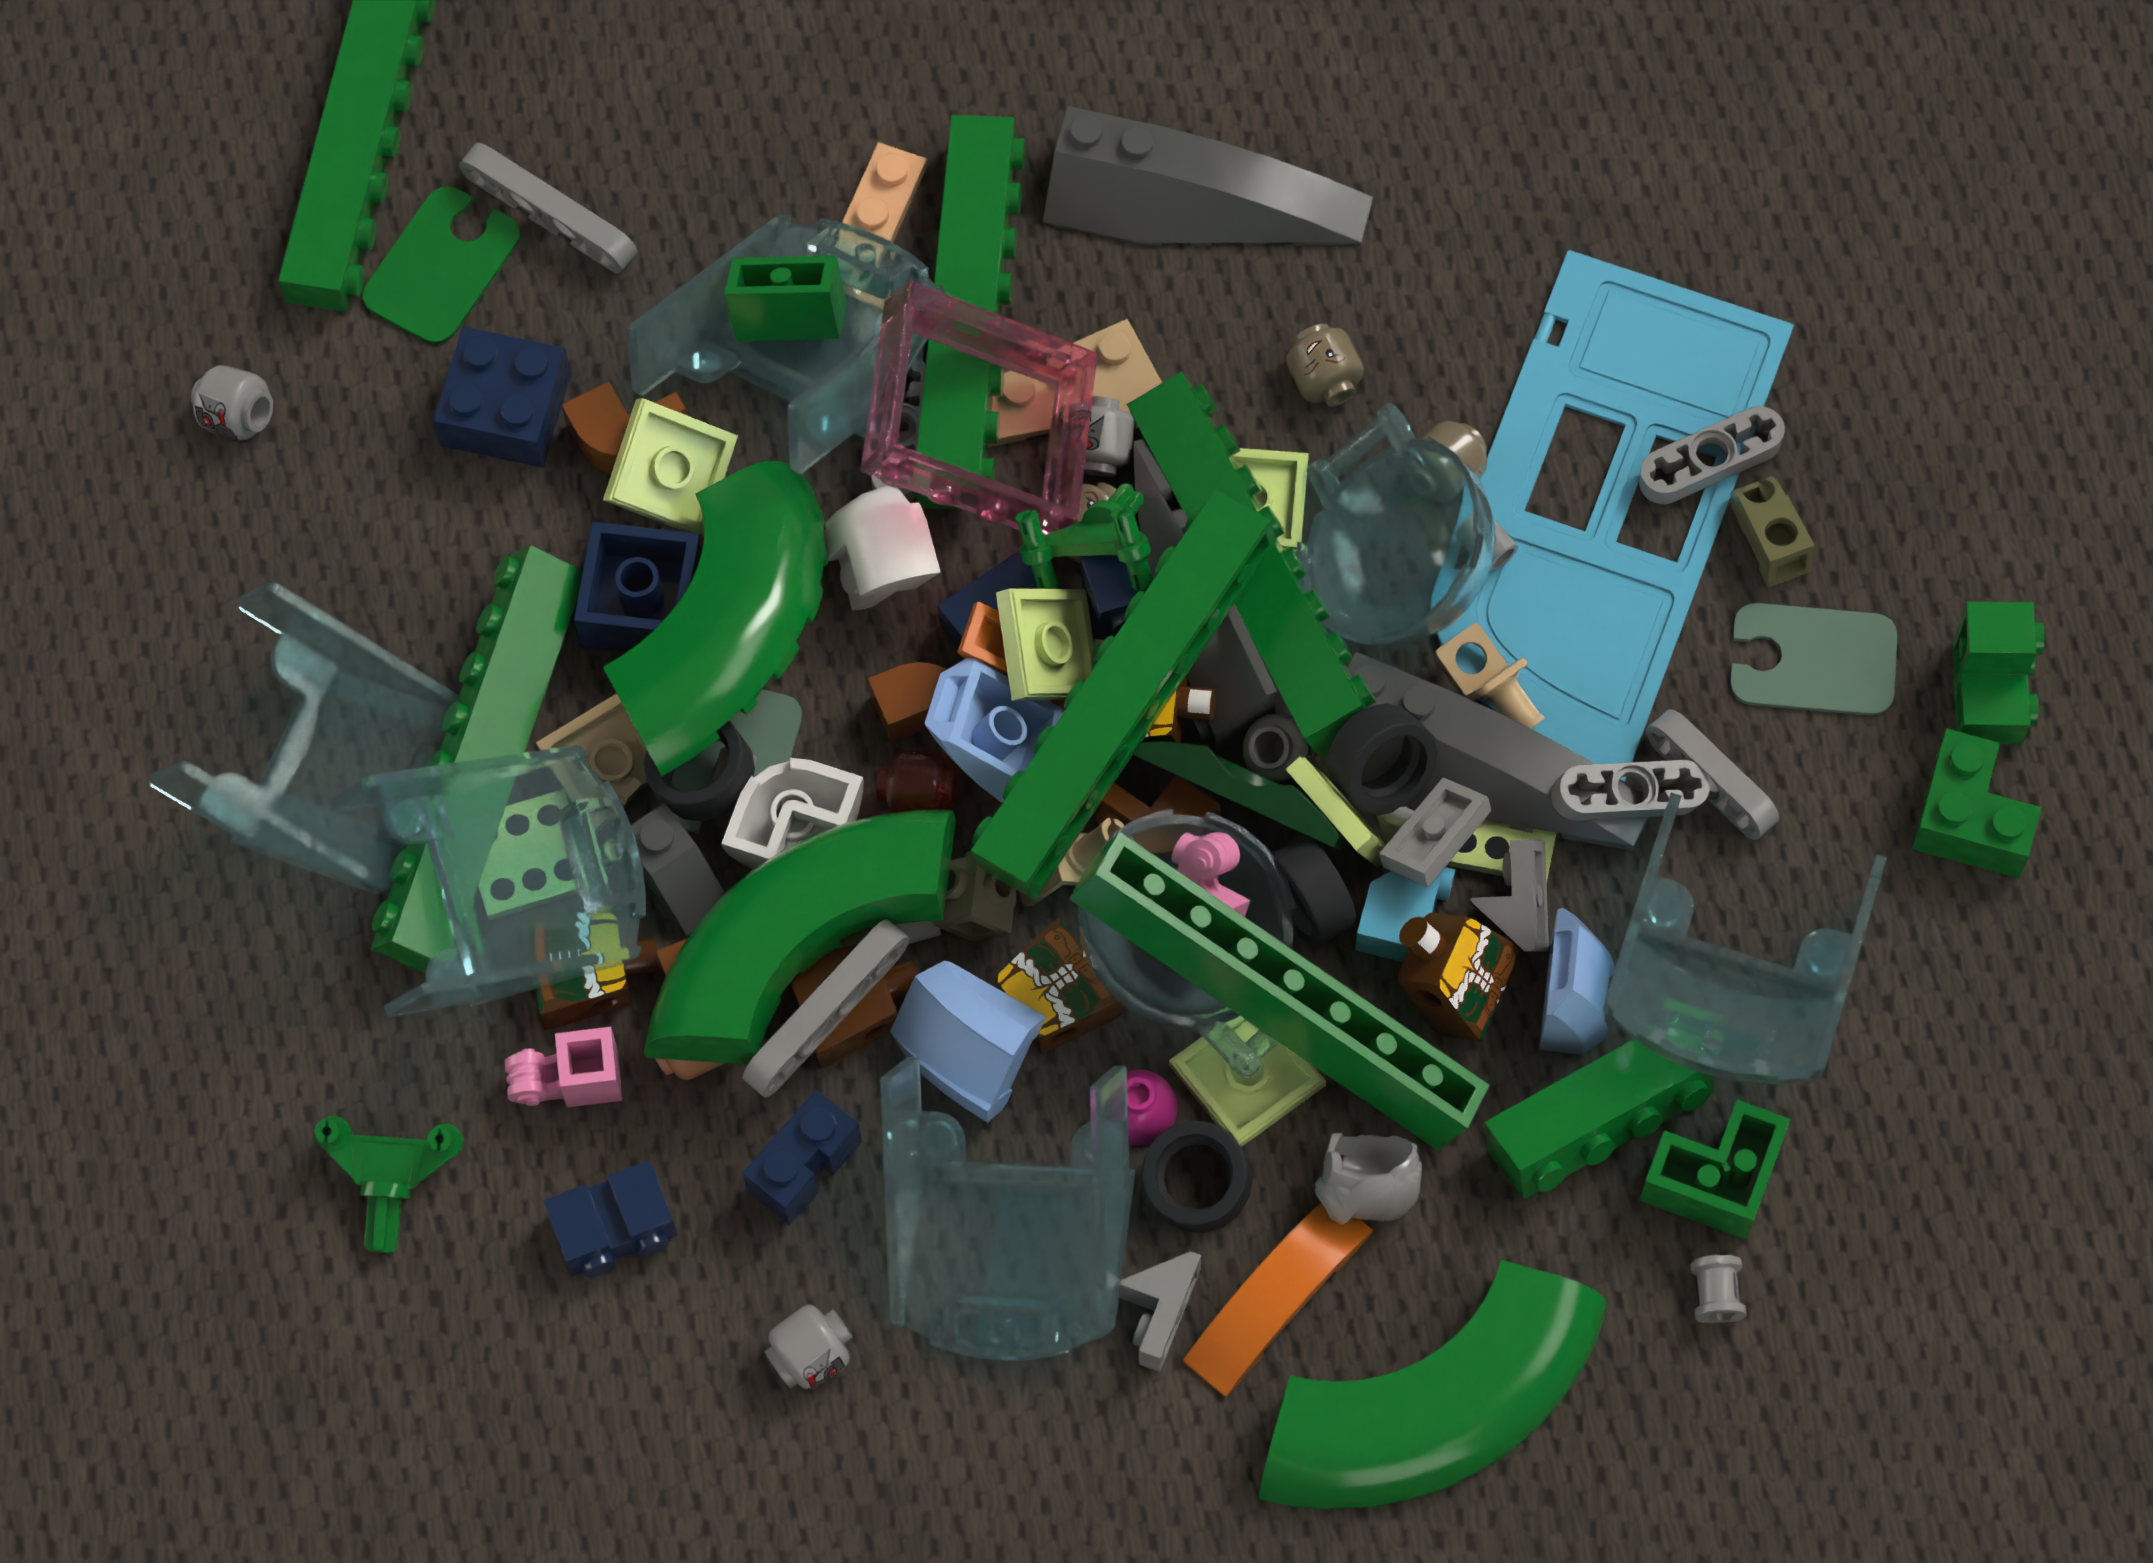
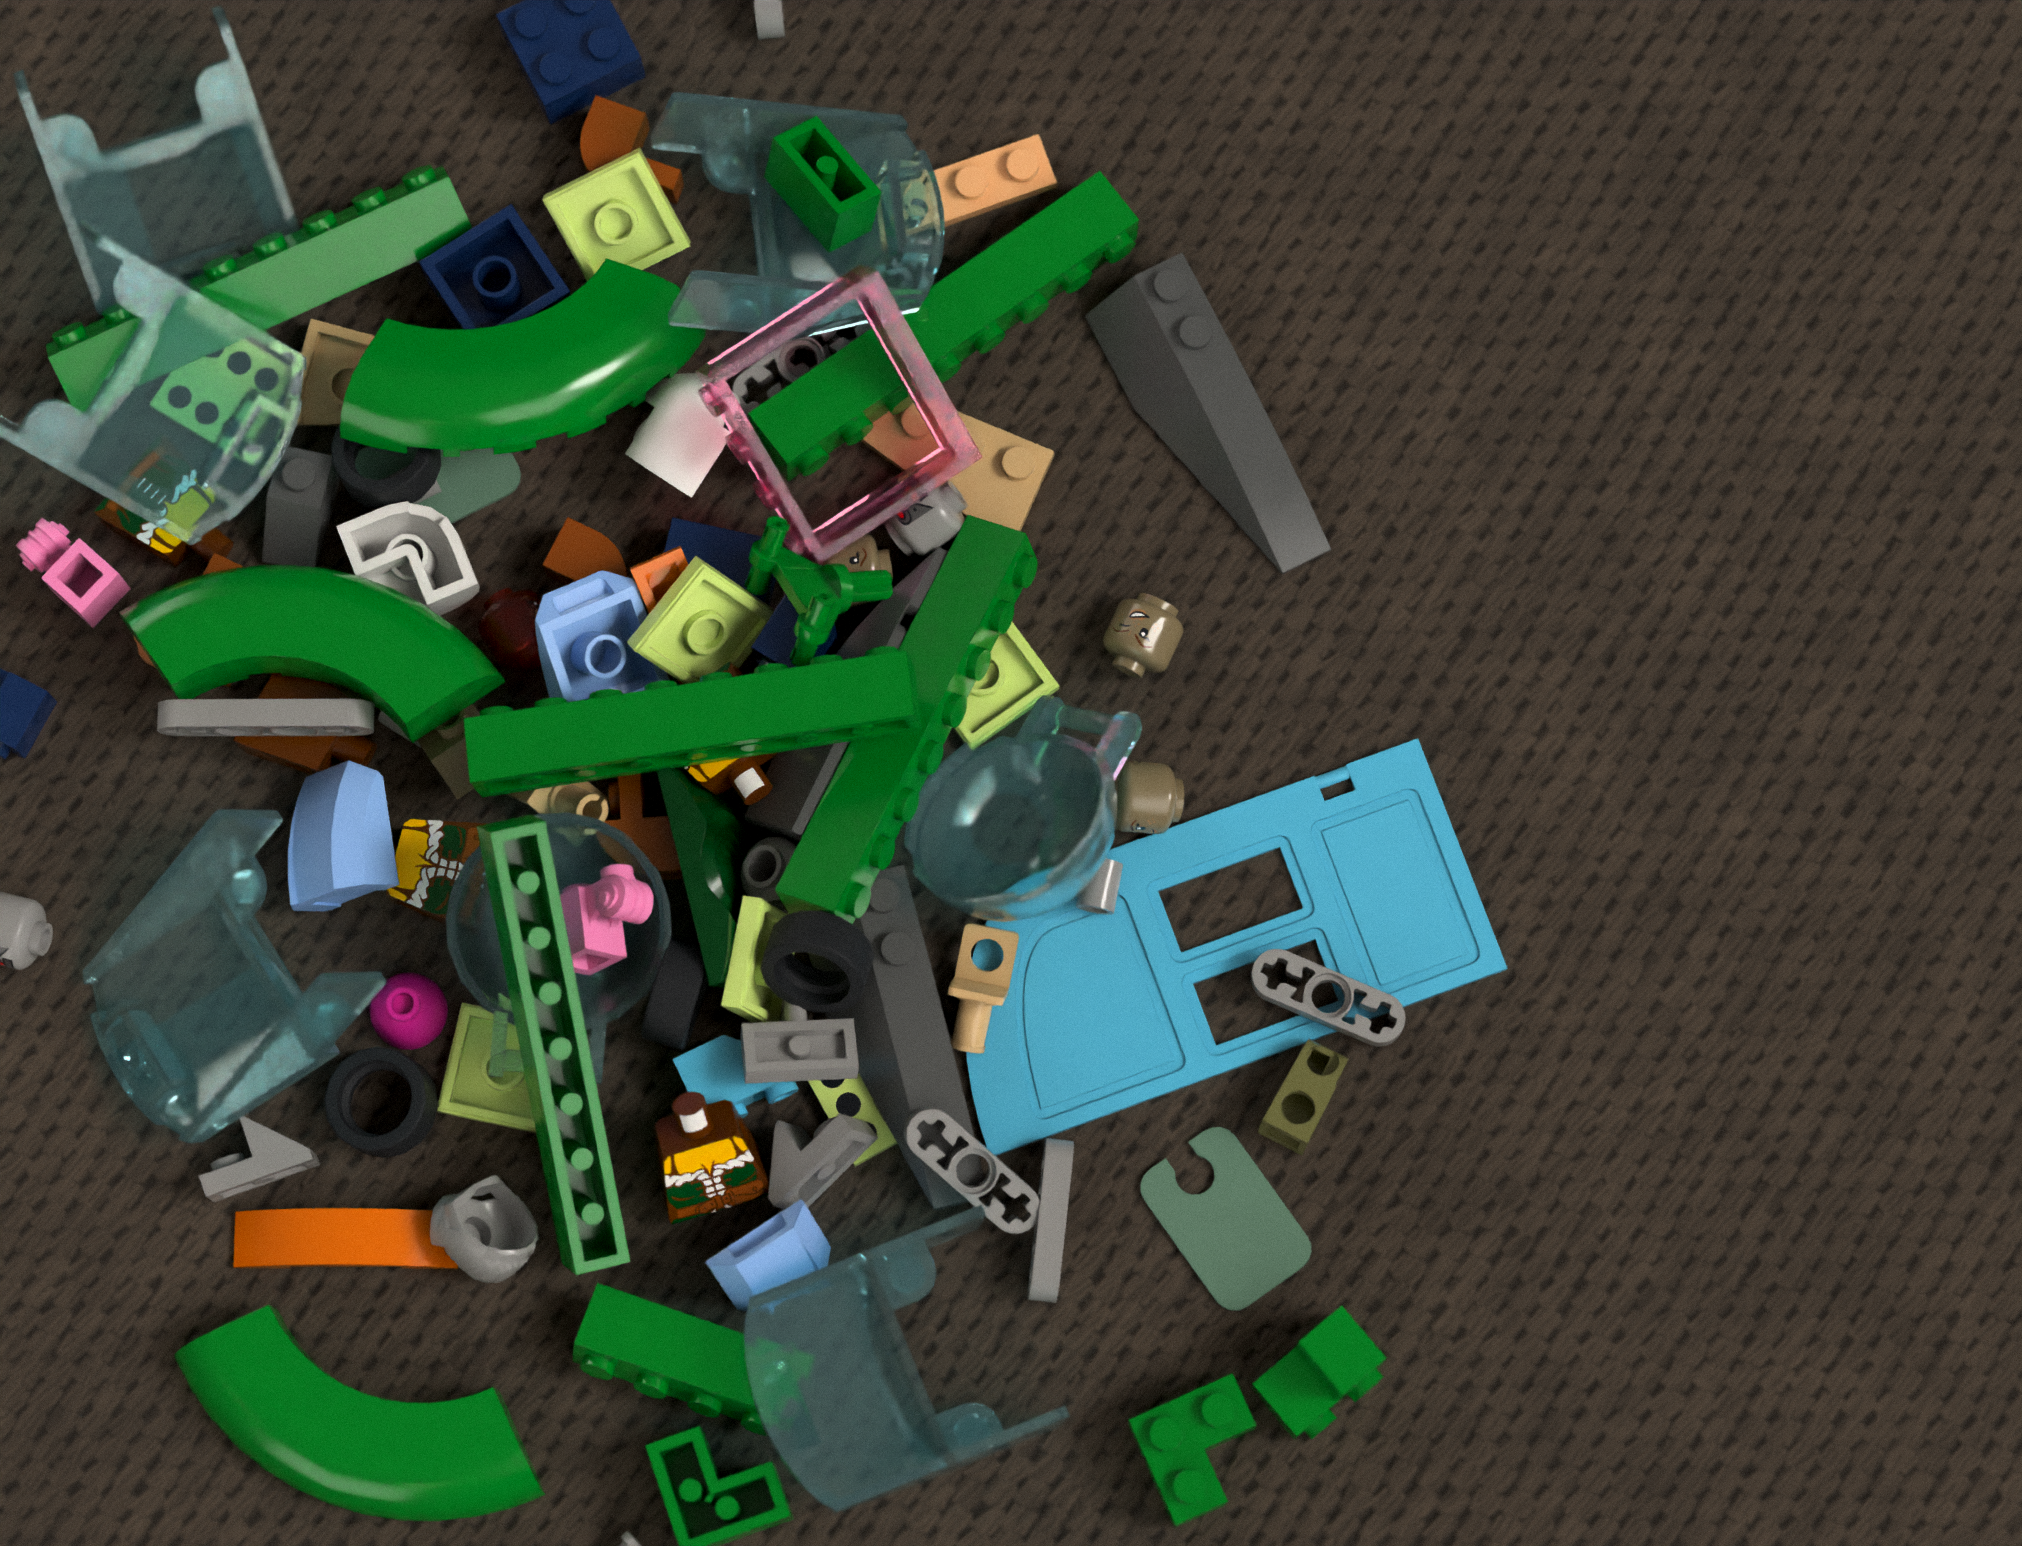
camera: 50 degrees right, 10 degrees up
(786, 1168) = (130, 794): dark blue brick -> none

